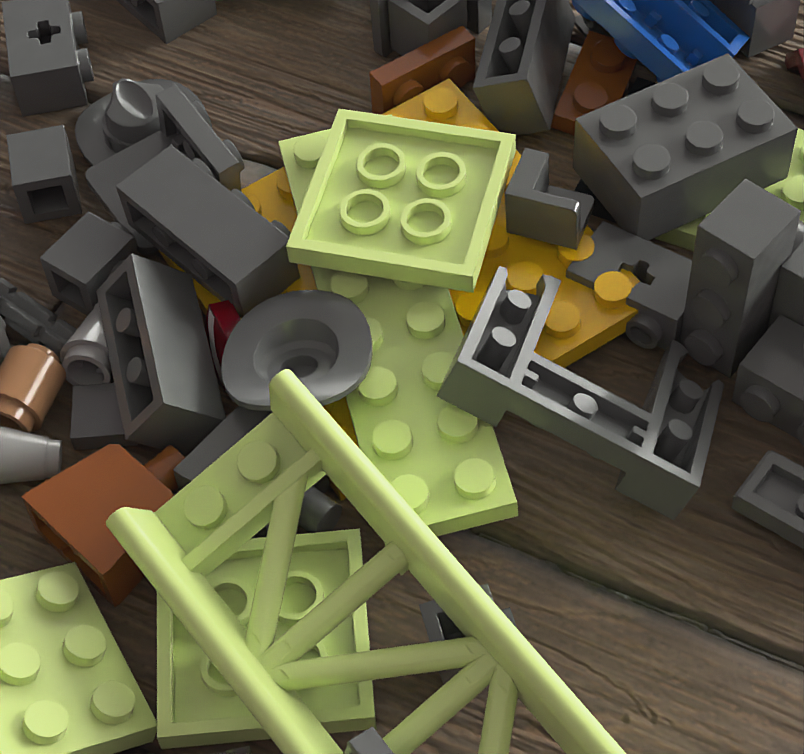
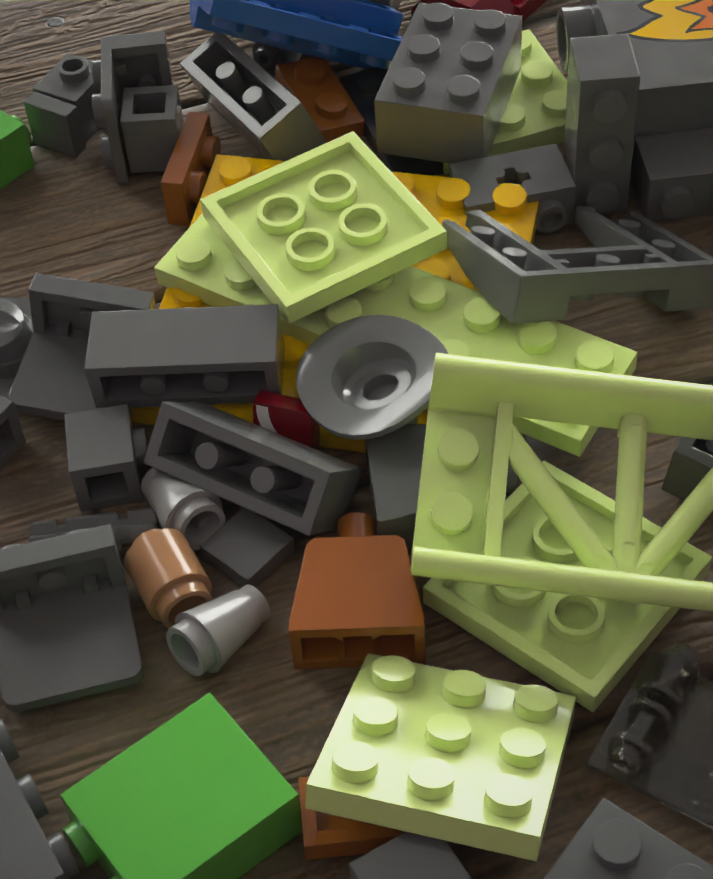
camera: 45 degrees left, 5 degrees down
(544, 210) = (423, 174): dark grey panel -> none

